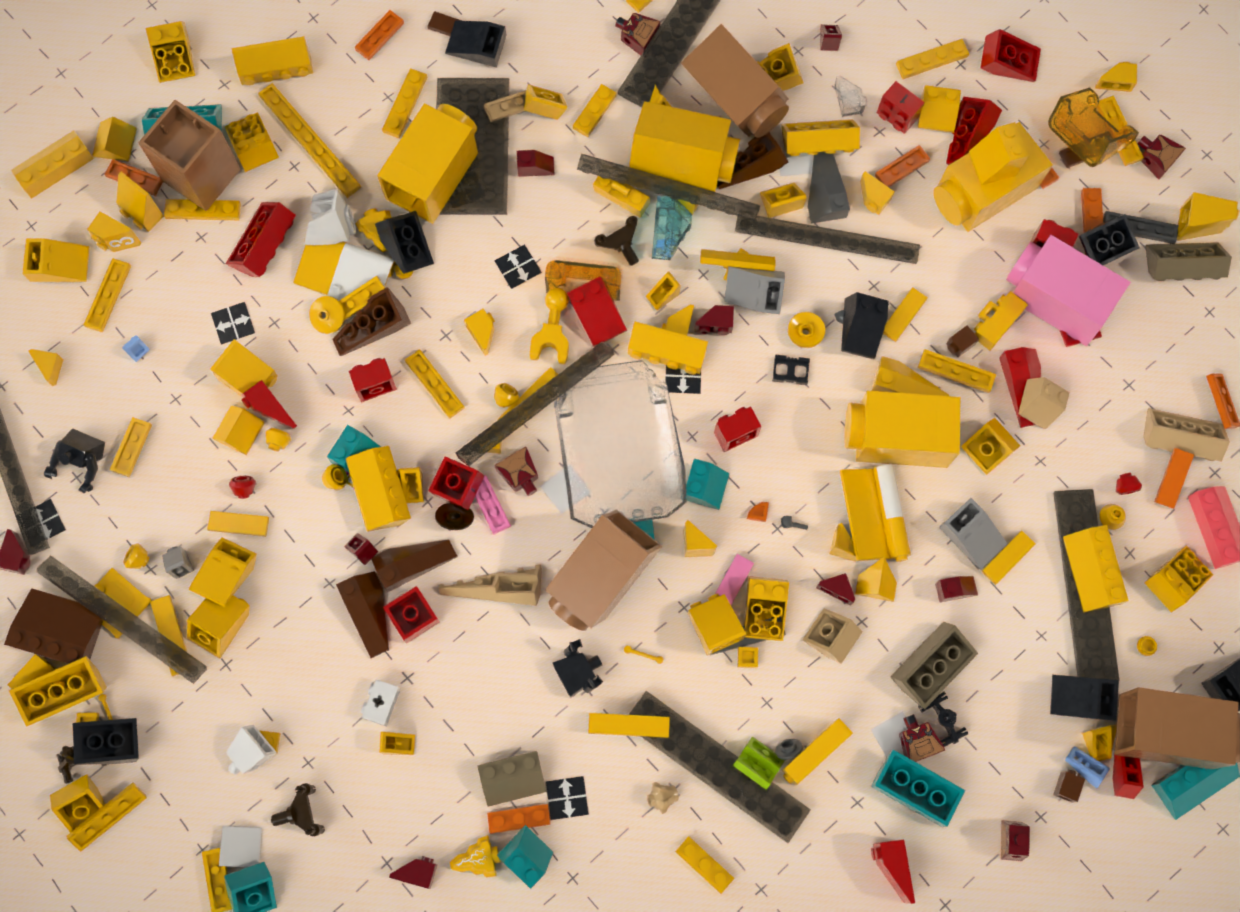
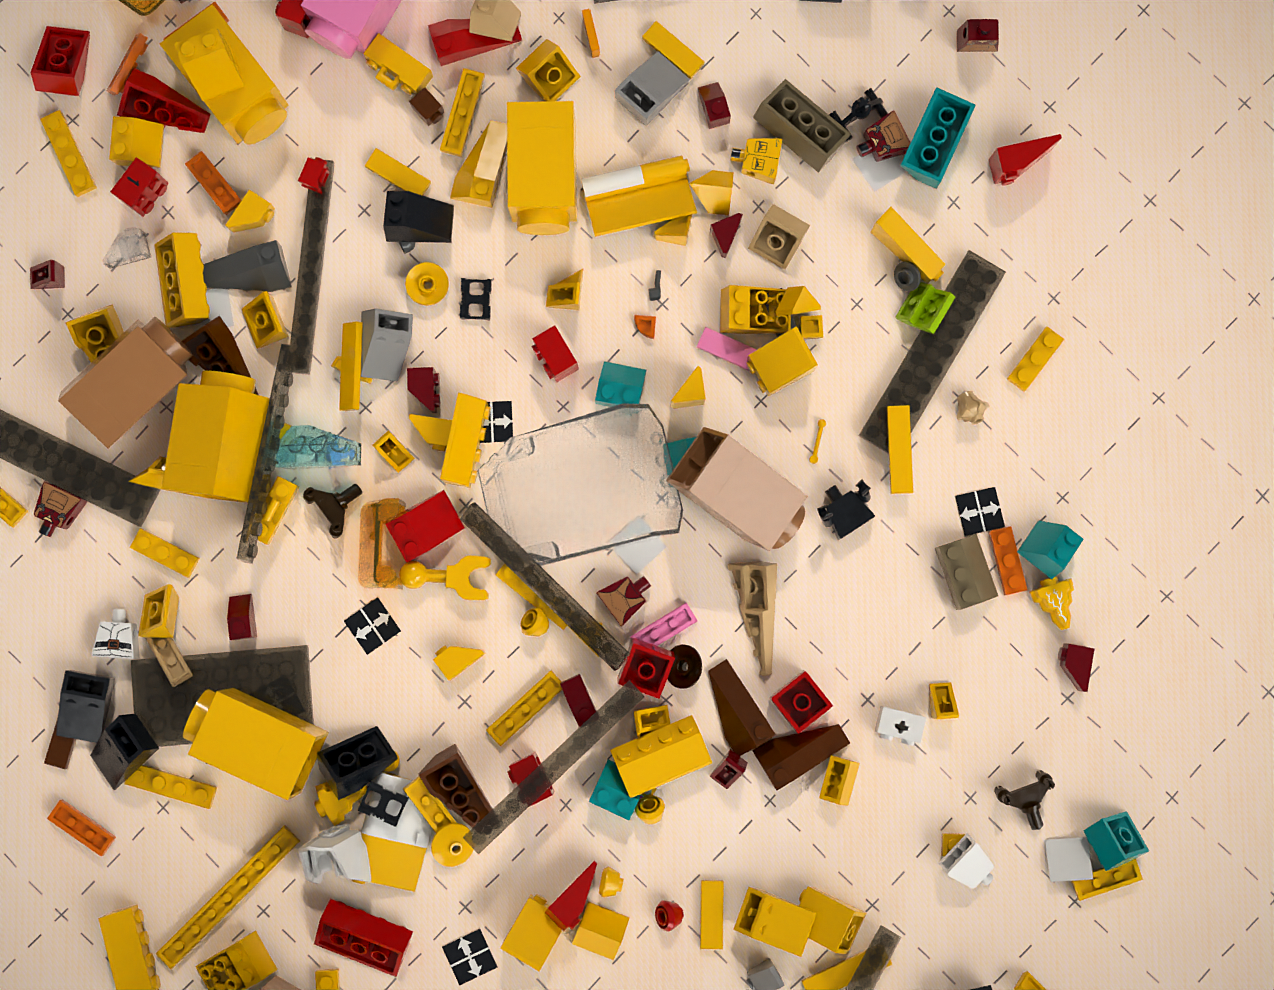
camera: 90 degrees left, 10 degrees up
(338, 643) = (839, 780): none -> yellow brick
(362, 256) = (379, 810): none -> black piece
(379, 393) = (553, 767): none -> clear smoke plate
(434, 426) = (578, 698): none -> dark red slope
(438, 67) = (123, 749): none -> black slope
(528, 69) = (117, 638): none -> torso
(770, 643) = (797, 301): none -> yellow slope
(792, 447) = (566, 293): none -> yellow slope
(905, 243) = (314, 174): none -> red window
(905, 624) = (759, 158): none -> yellow torso
(1020, 115) = (128, 63): none -> orange plate
(1025, 485) = (591, 33): none -> light orange tile

